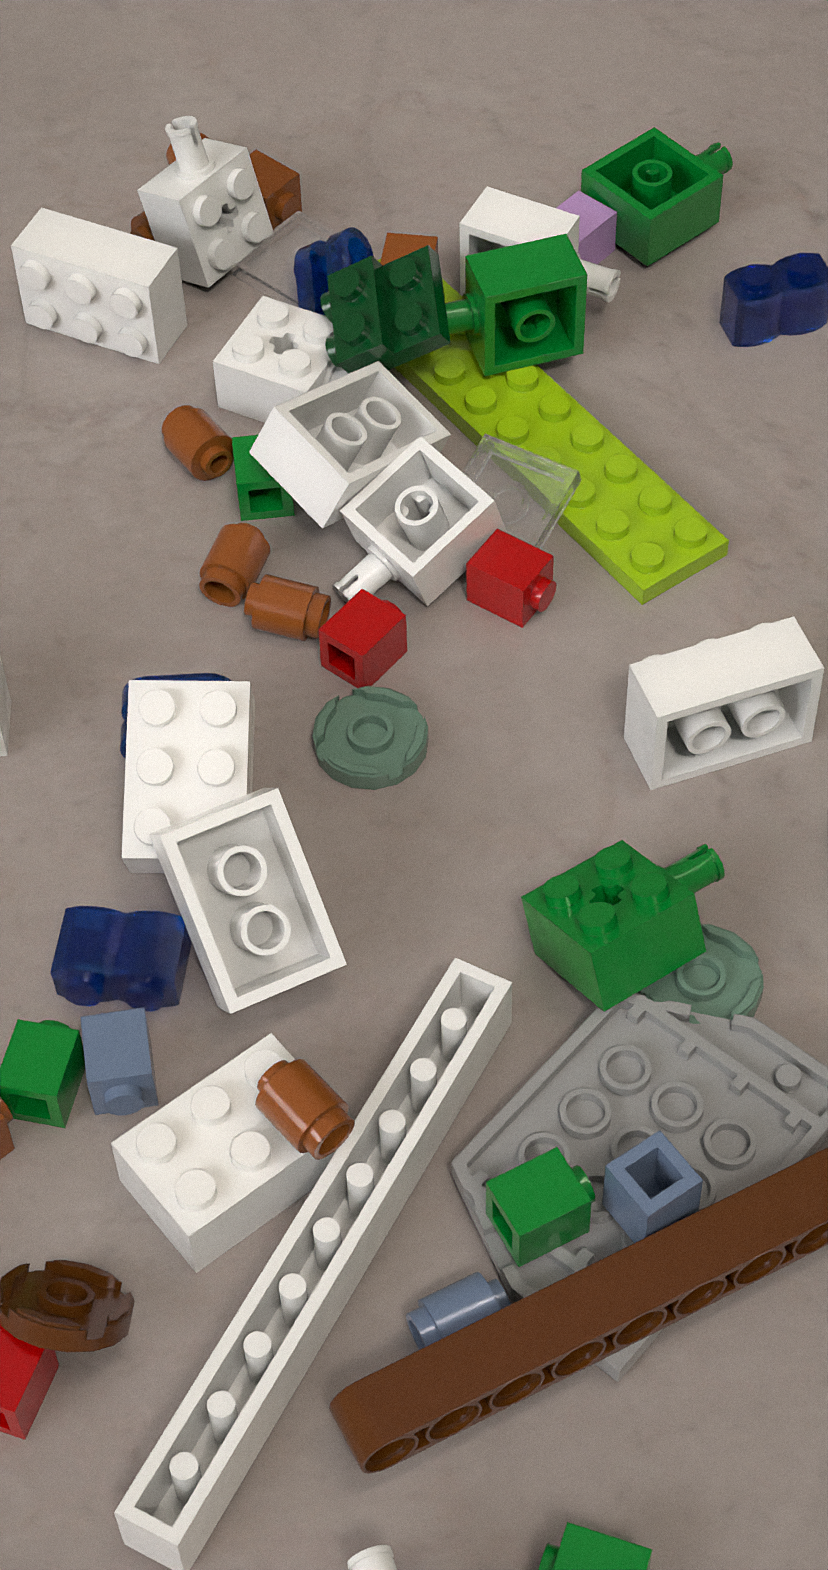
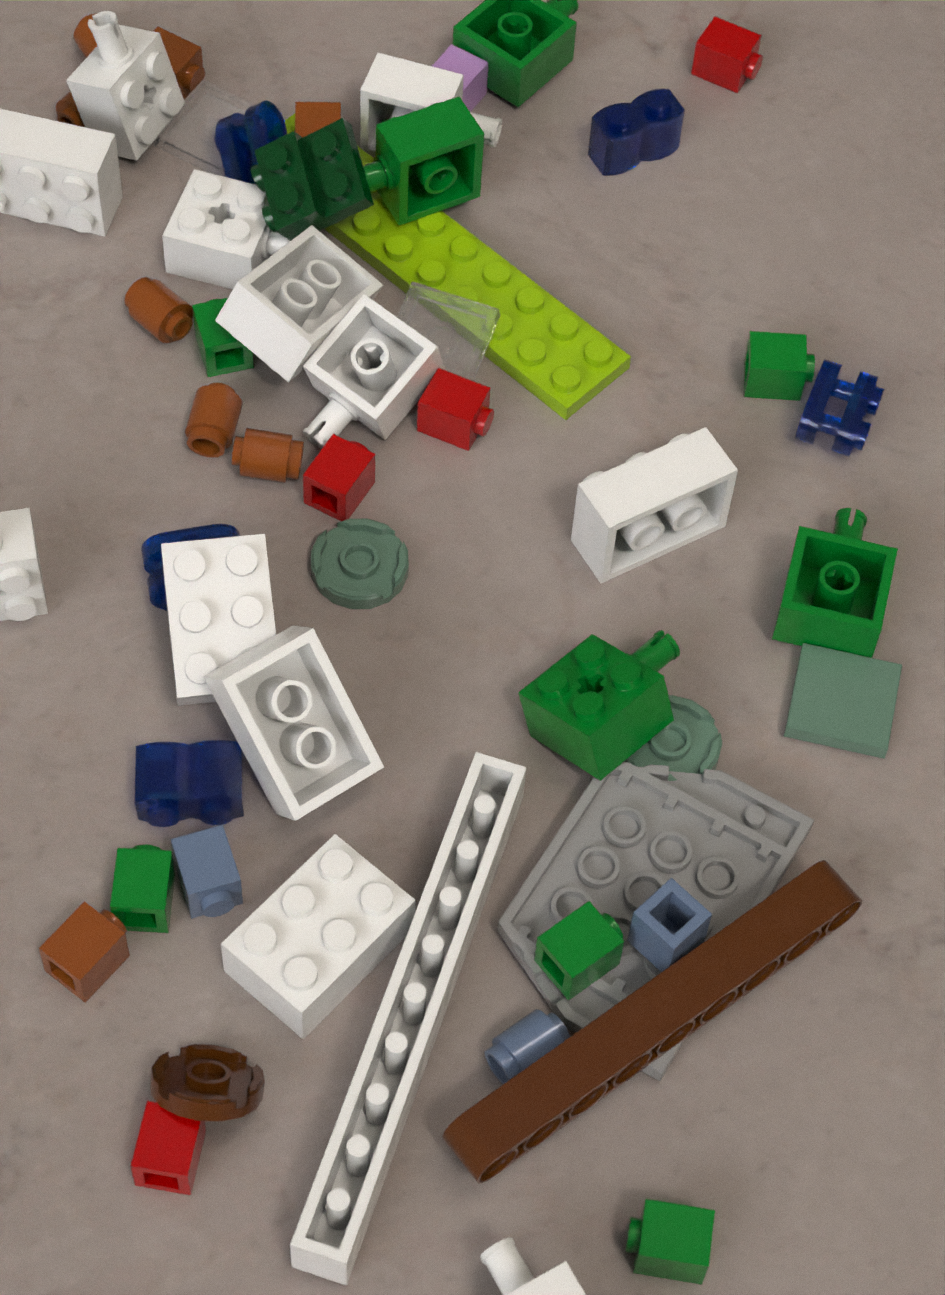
camera: 15 degrees left, 5 degrees up
(304, 1108) = (380, 895): dark orange brick -> none

